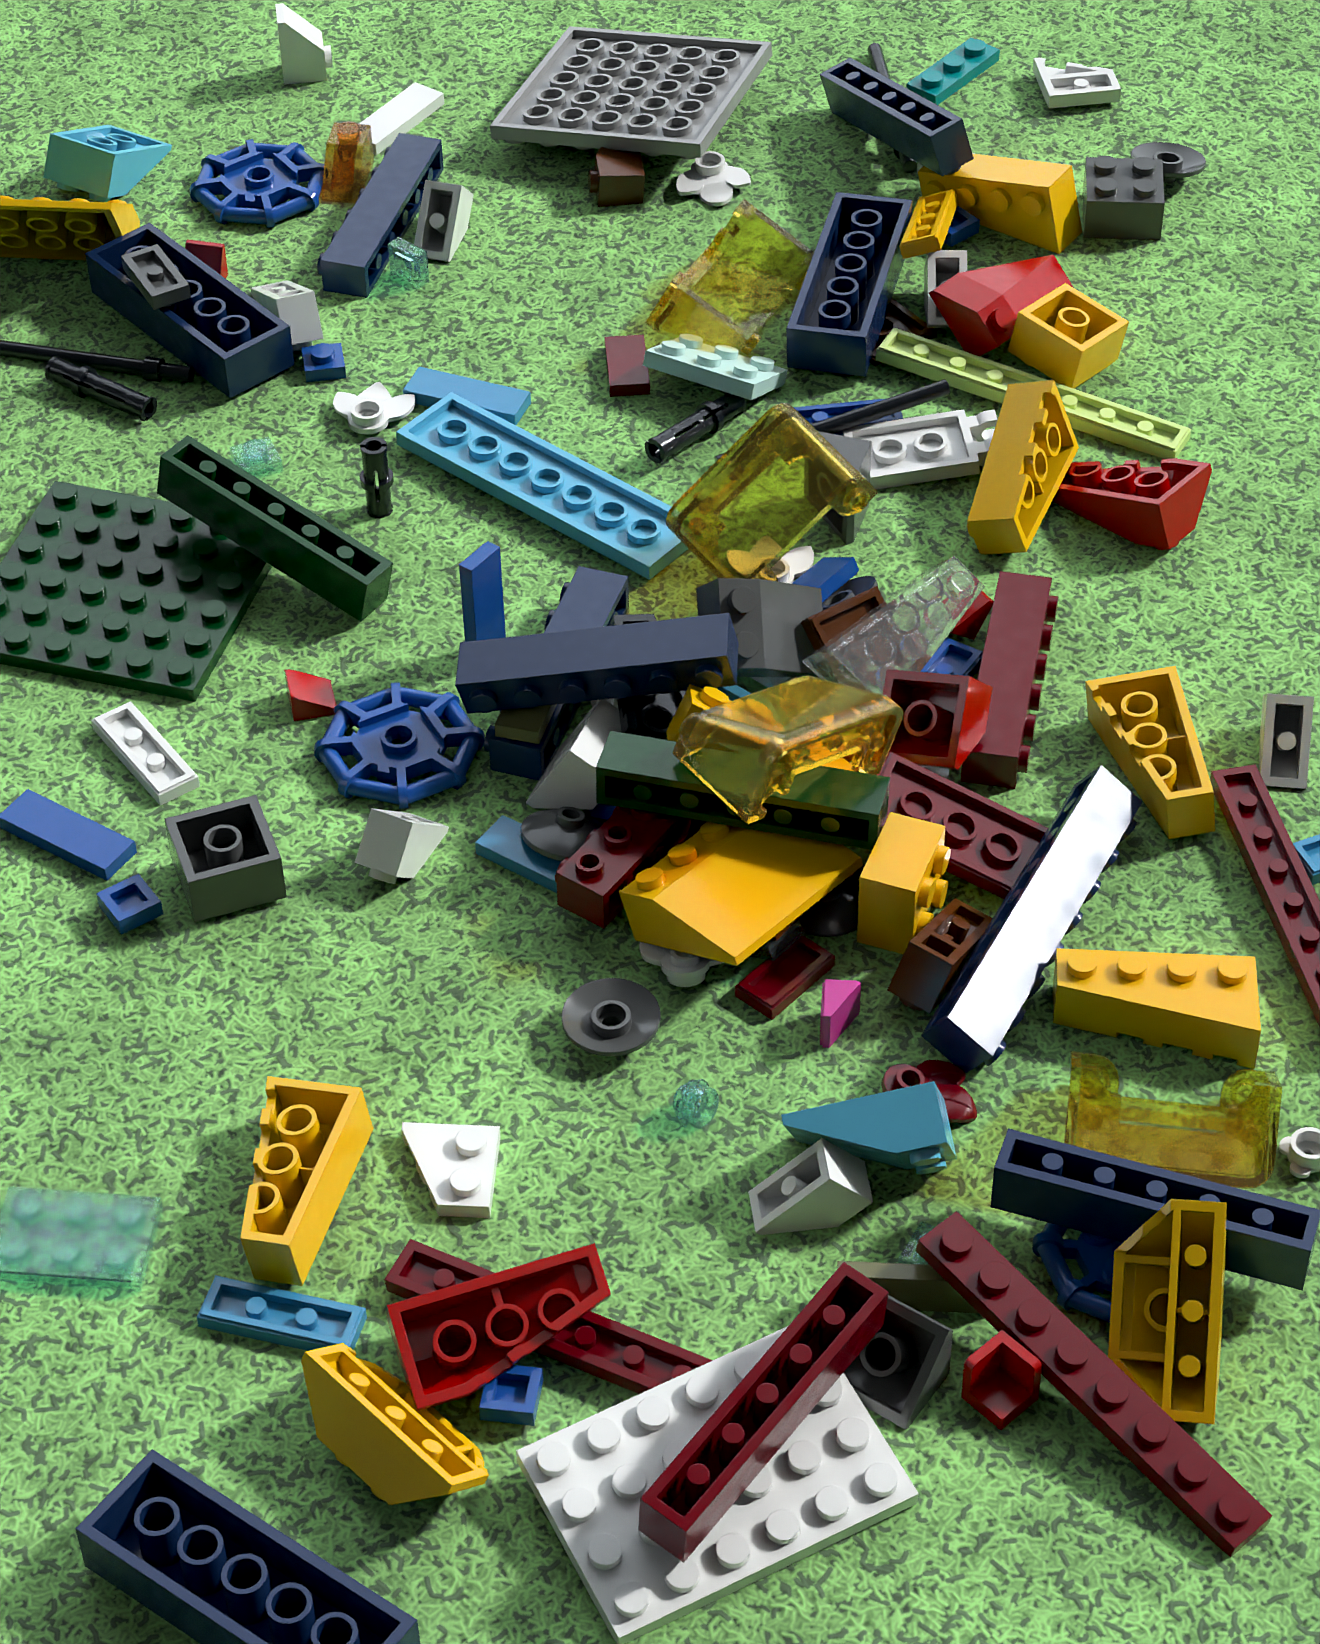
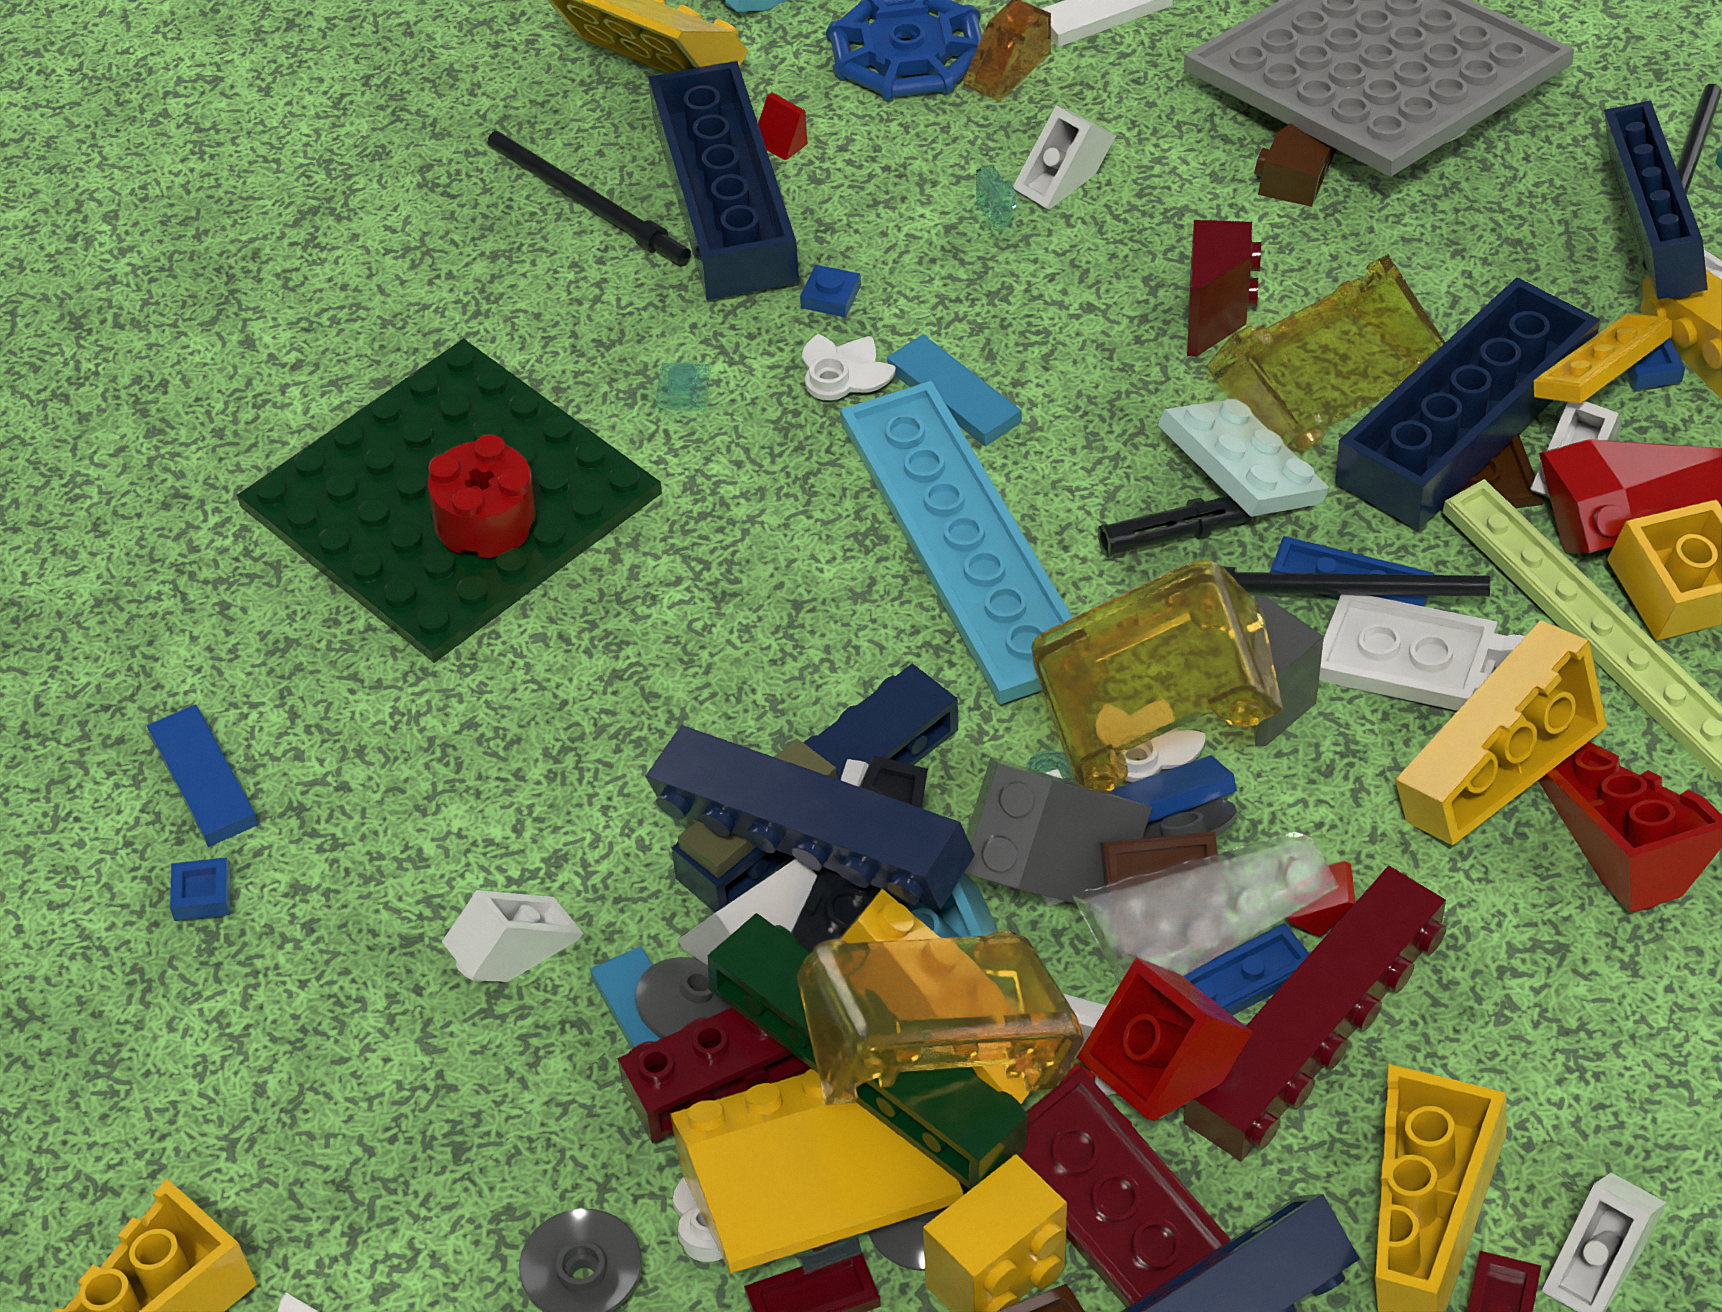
camera: 30 degrees right, 5 degrees up
(86, 382) = (572, 229): black pin -> none
(145, 753) = (341, 708): white tile -> none
(156, 277) = (689, 133): dark grey plate -> none
(169, 568) = (481, 497): none -> red brick
(225, 858) = (315, 879): dark grey brick -> none
(274, 528) = (617, 491): dark green brick -> none
(295, 307) = (826, 217): white slope -> none
(309, 695) = (544, 705): red slope -> none
(375, 459) = (770, 463): black pin -> none
(380, 215) = (1003, 126): brick -> none
(387, 718) = (584, 831): blue plate -> none
(482, 594) = (761, 676): blue tile -> none
(621, 260) = (1220, 281): none -> dark red slope
(625, 365) = (1139, 426): tile -> none
(712, 179) = (1406, 203): white plate -> none

